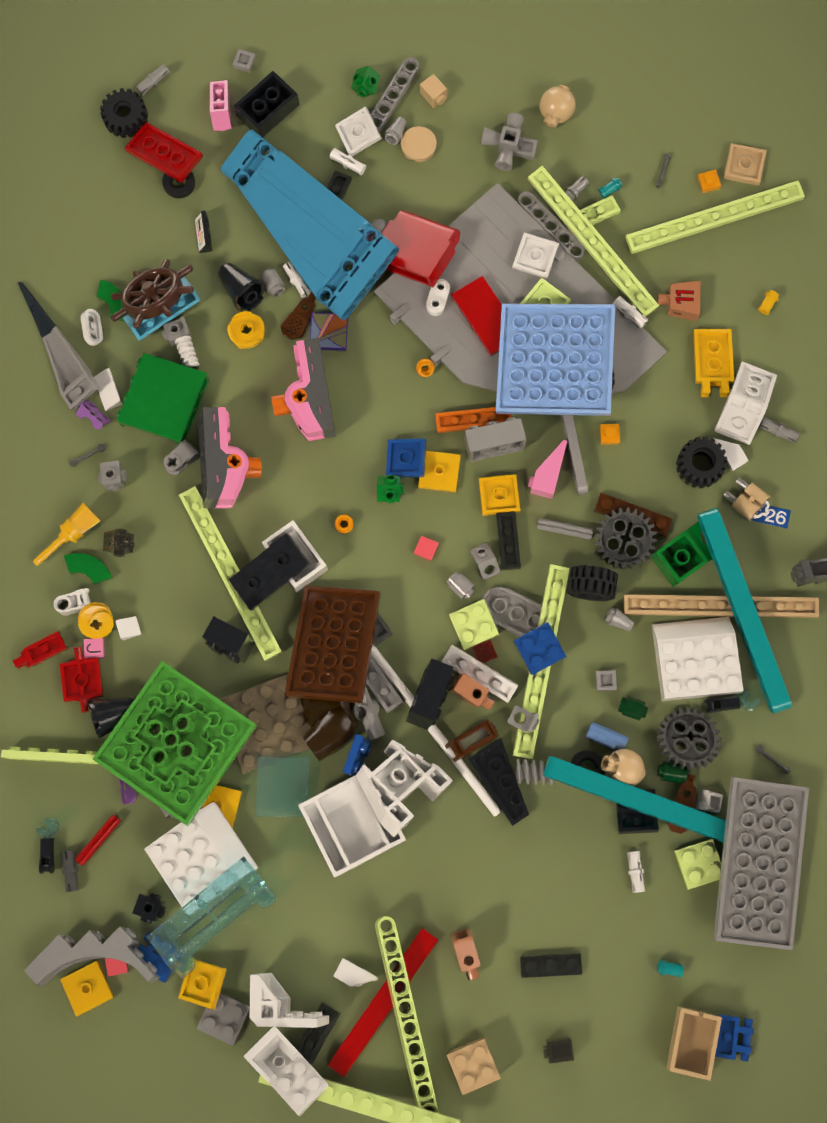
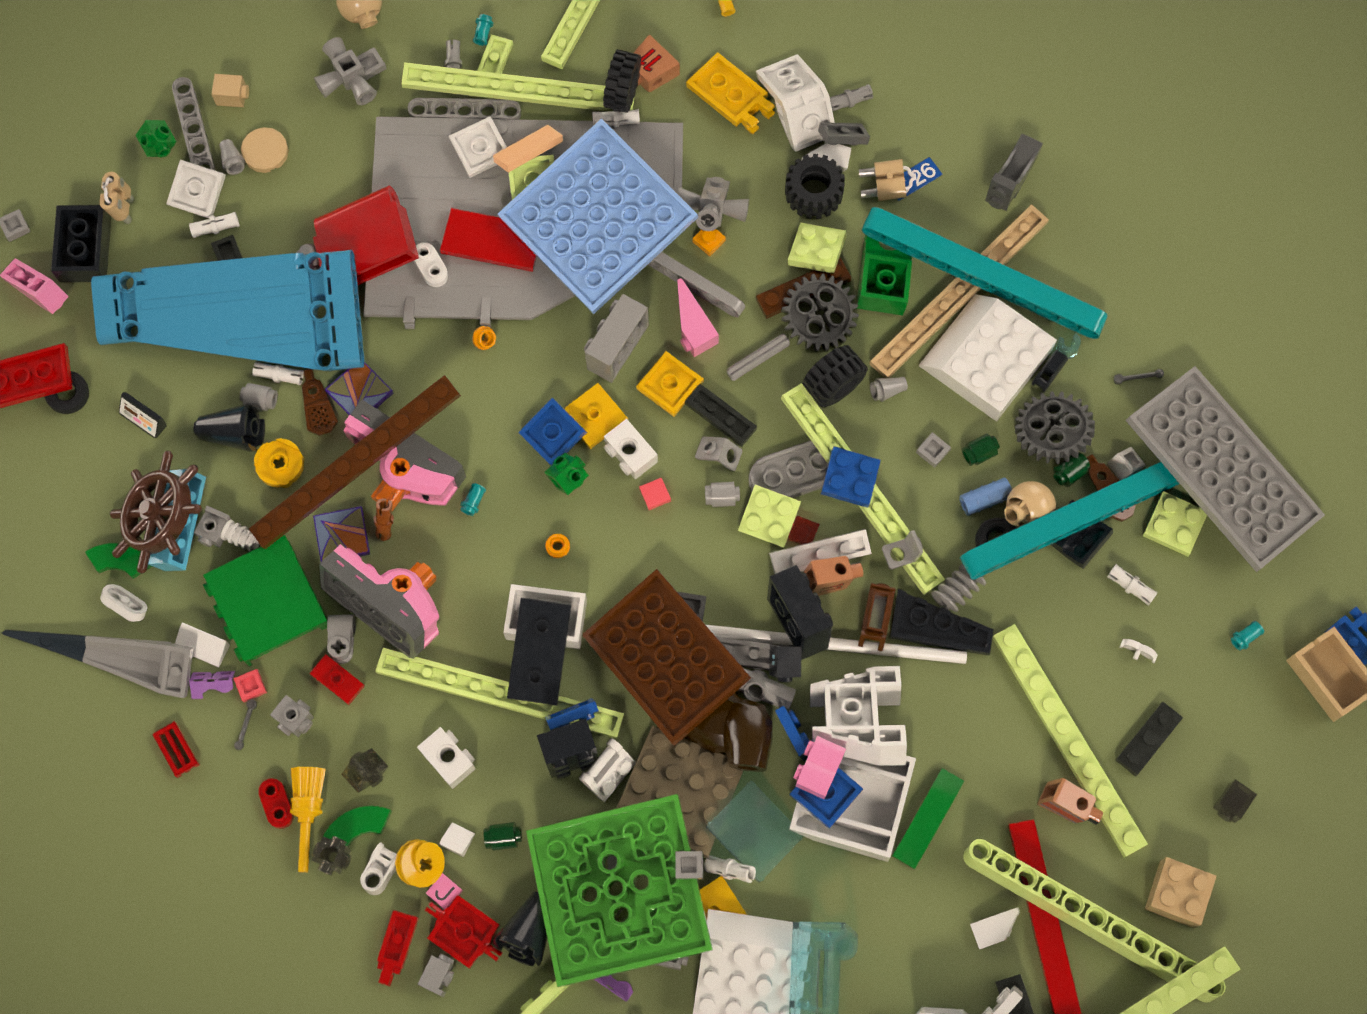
camera: 50 degrees left, 5 degrees down
(42, 448) = (185, 767): none -> red tile
(44, 688) = (437, 974): none -> light grey brick
(50, 569) = (323, 851): none -> clear smoke brick
(59, 512) = (276, 802): none -> red plate
(110, 436) = (250, 685): none -> coral tile
(152, 650) = (502, 836): none -> dark green brick
(156, 479) = (337, 679): none -> red plate
(163, 568) = (433, 750): none -> white brick
(220, 768) = (689, 864): none -> light grey plate
(239, 402) = (343, 528): none -> tile
(240, 673) = (608, 770): none -> white plate
(247, 792) = (730, 869): none -> white pin
(254, 626) = (580, 711): none -> blue plate
(265, 416) = (383, 519): none -> dark orange pin
(280, 369) = (354, 462): none -> reddish brown plate
(307, 94) = (116, 197): none -> tan piece
(326, 452) = (473, 499): none -> teal pin
(336, 806) = (838, 798): none -> blue plate
(344, 790) = (819, 767): none -> bright pink brick
(383, 878) = (928, 818): none -> green slope
(393, 713) = (785, 662): none -> black brick
(439, 521) = (627, 436): none -> white brick
(464, 419) = (572, 345): orange plate -> none
(505, 919) = (1069, 740): none -> yellowish green plate
(560, 282) = (528, 148): none -> light nougat tile
(600, 911) = (1139, 648): none -> white piece
(631, 416) = (713, 204): none -> light grey brick
(651, 293) = (622, 81): none -> black tyre
(664, 499) = (817, 247): none -> yellowish green plate
(752, 448) = (844, 133): none -> dark grey plate

